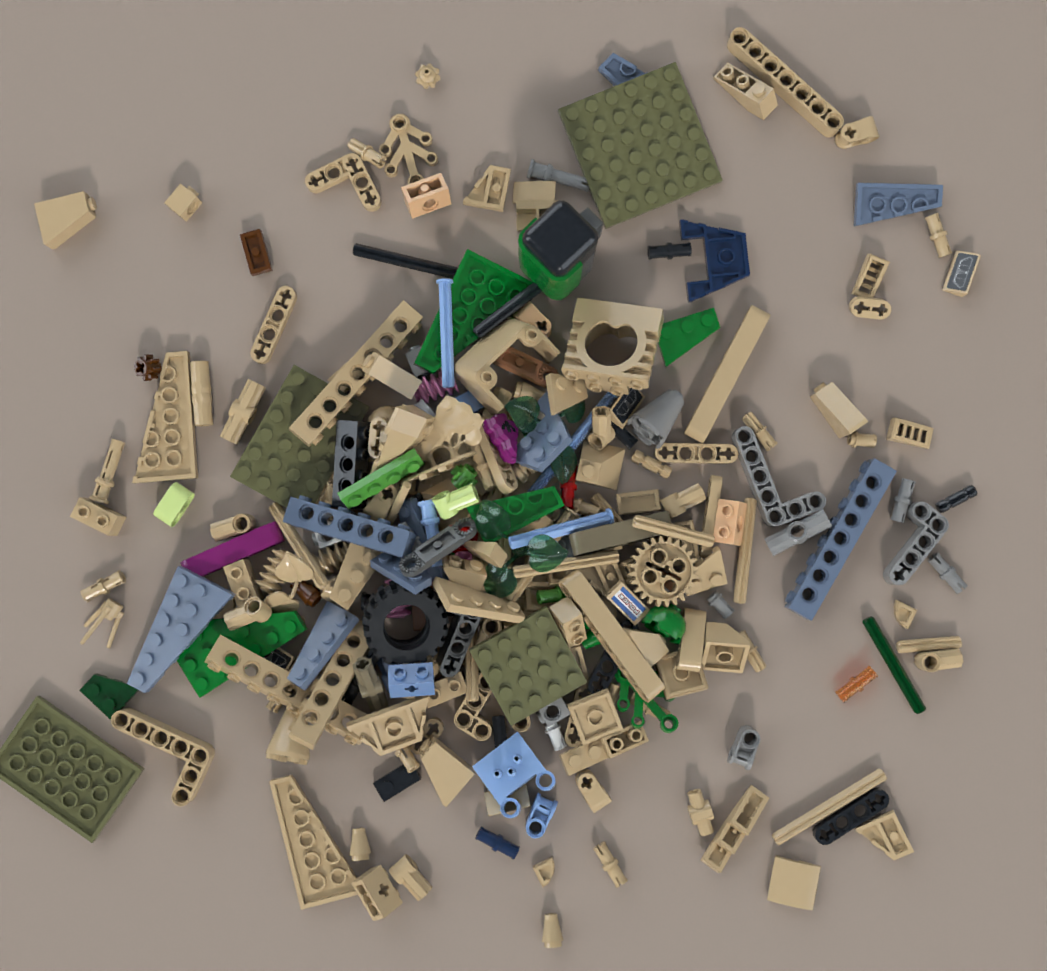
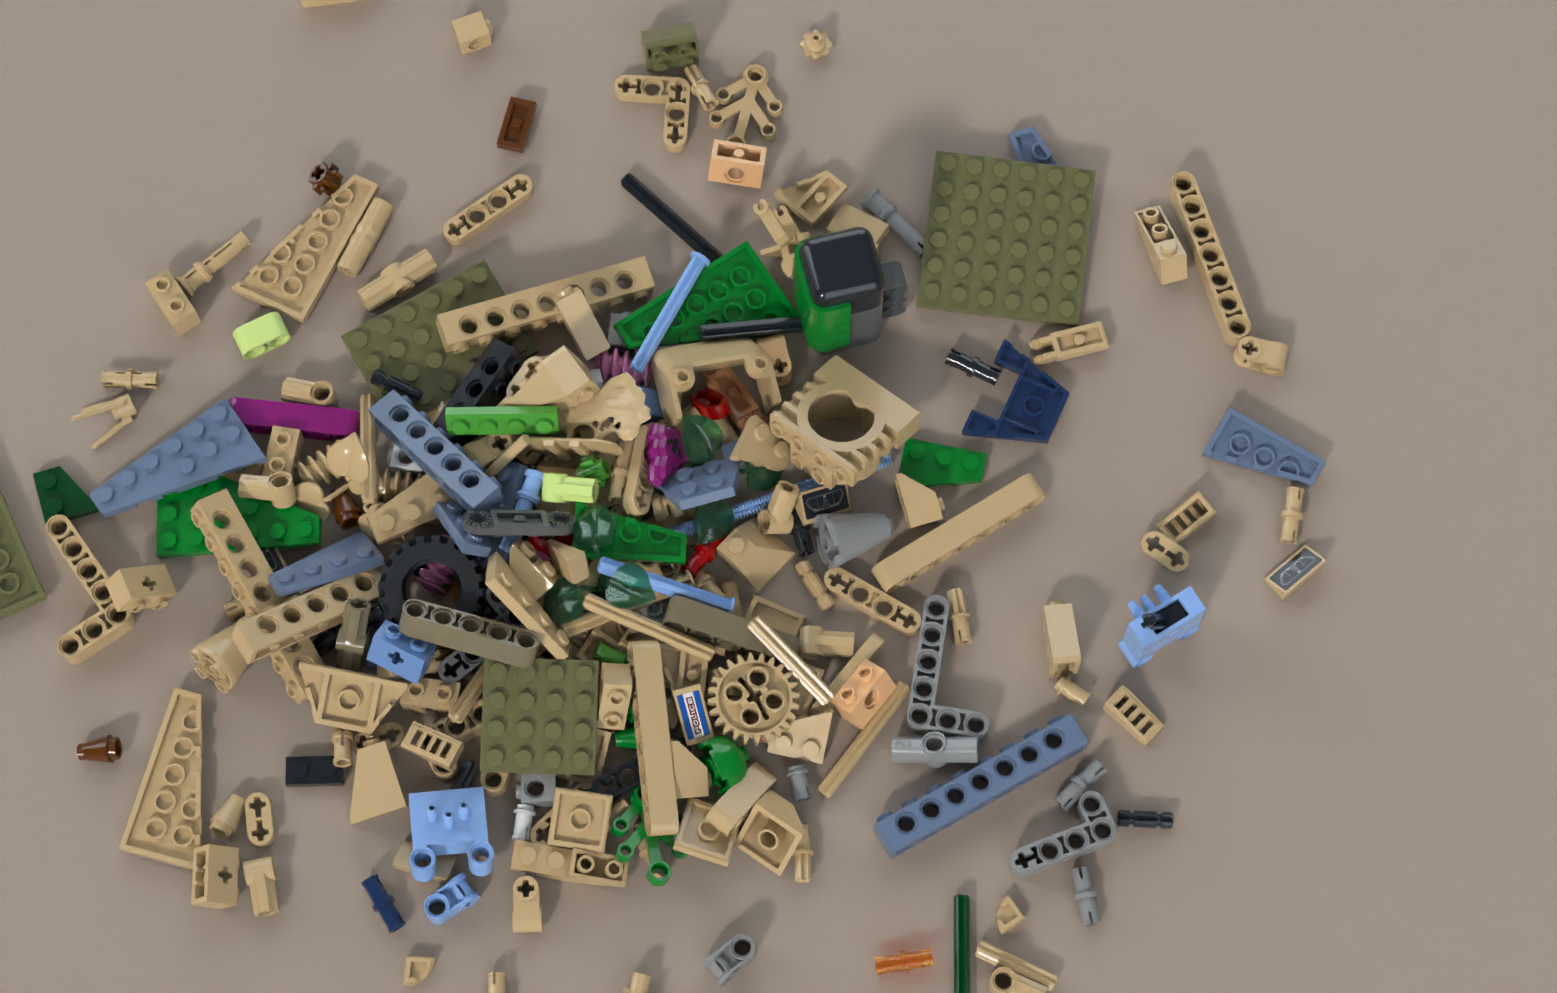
camera: 25 degrees right, 15 degrees down
(194, 736) = (140, 588): none -> tan brick
(246, 850) = (102, 749): none -> reddish brown cone
(290, 491) = (402, 388): none -> black axle
(328, 135) = (670, 47): none -> olive slope
(377, 837) = (252, 820): none -> tan beam
(443, 652) = (469, 633): none -> dark tan beam
(468, 734) = (452, 755): none -> tan slope
(493, 230) = (784, 232): none -> tan piece
(511, 379) = (711, 404): none -> red beam
(689, 369) = (918, 502): none -> tan slope
(726, 195) = (1071, 343): none -> tan hinge
(906, 364) = (1162, 624): none -> light blue piece

